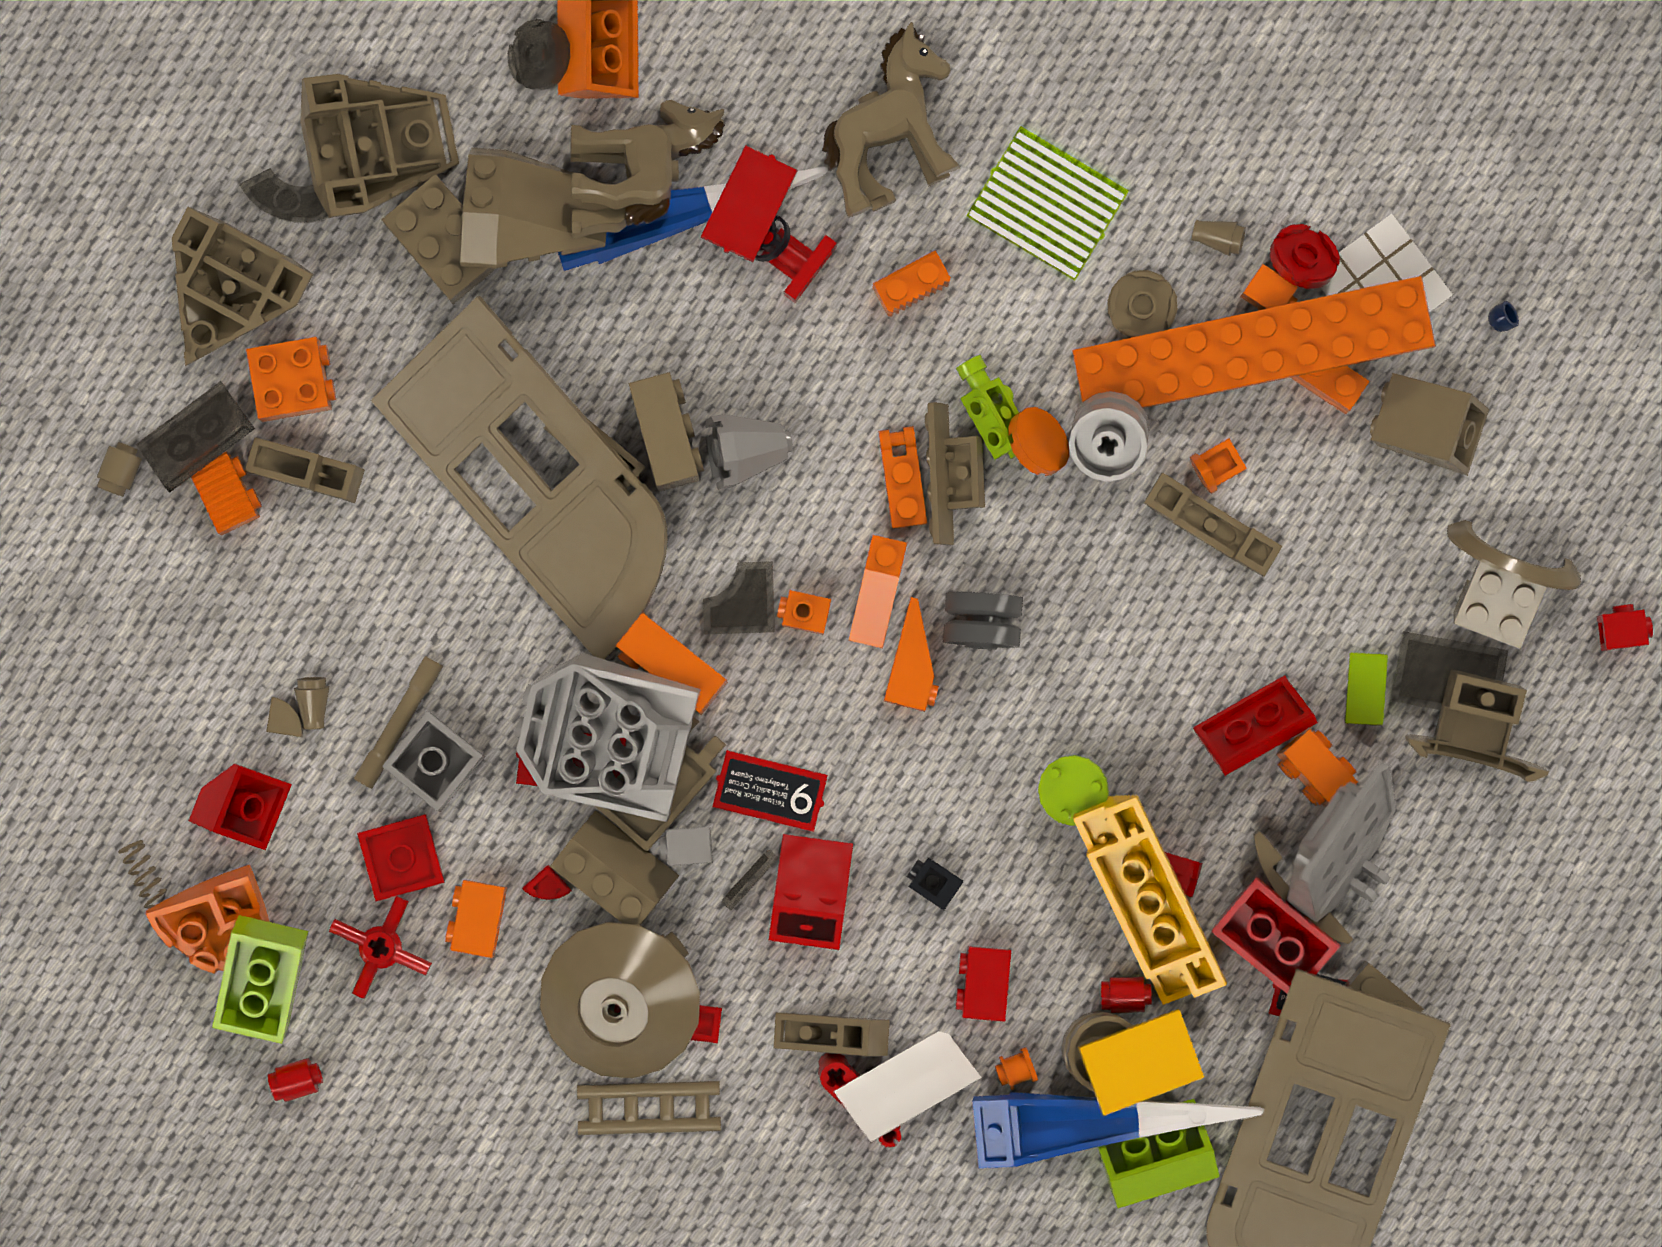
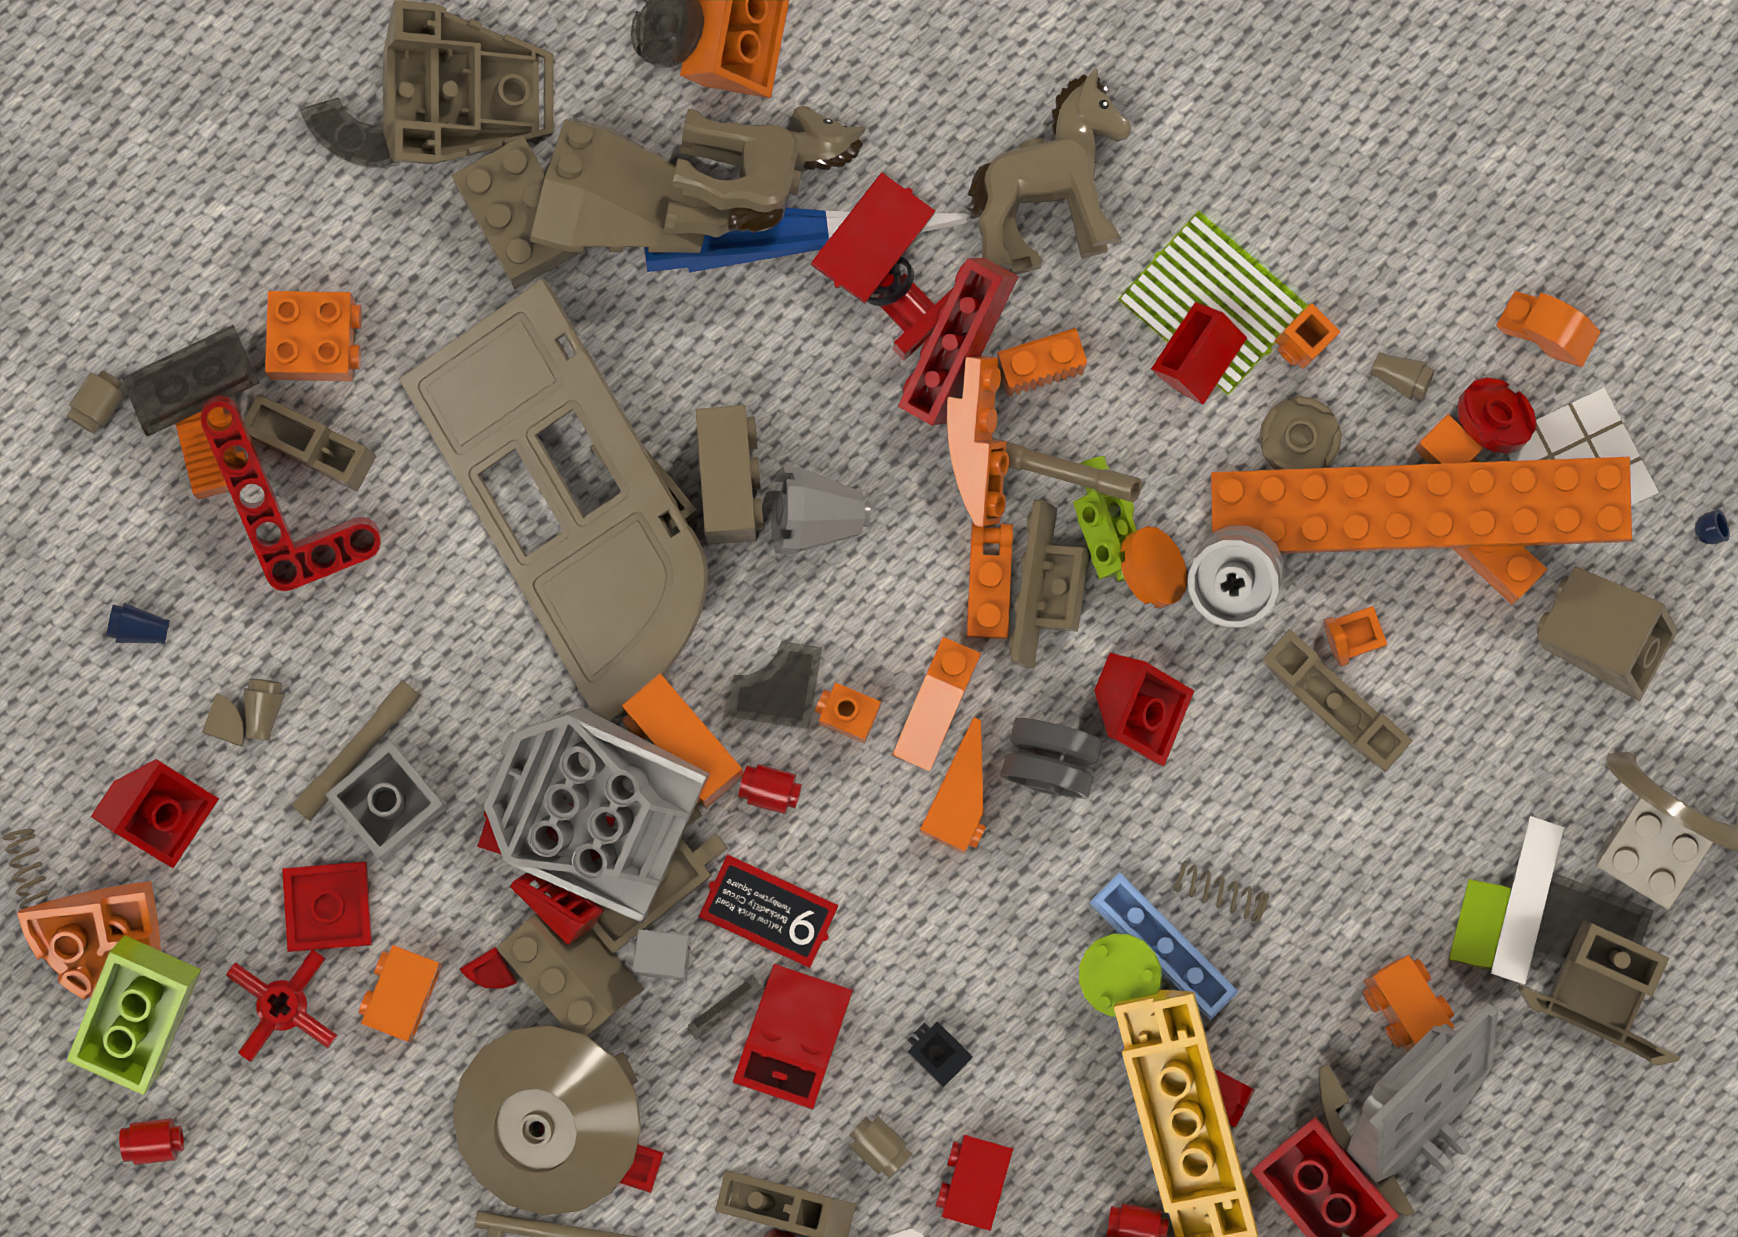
camera: 10 degrees right, 5 degrees down
(192, 653) = (135, 625): none -> dark blue cone
(228, 282) = (263, 214): dark tan wedge -> none
(284, 535) = (269, 511): none -> red beam
(606, 828) = (564, 912): none -> red slope
(751, 688) = (769, 788): none -> red brick
(837, 281) = (961, 332): none -> red brick
(871, 376) = (975, 457): none -> slope
(900, 969) = (879, 1146): none -> dark tan brick
(910, 369) = (1104, 481): none -> dark tan piece
(1043, 250) = (1199, 352): none -> red brick
(1049, 560) = (1141, 706): none -> red slope
(1119, 766) = (1180, 961): none -> light blue brick
(1131, 220) = (1306, 337): none -> orange brick
(1179, 701) = (1261, 897): none -> dark tan piece
(1255, 725) = (1344, 940): red tile -> none
(1336, 170) = (1552, 325): none -> orange brick
(1401, 662) = (1527, 900): none -> white sticker

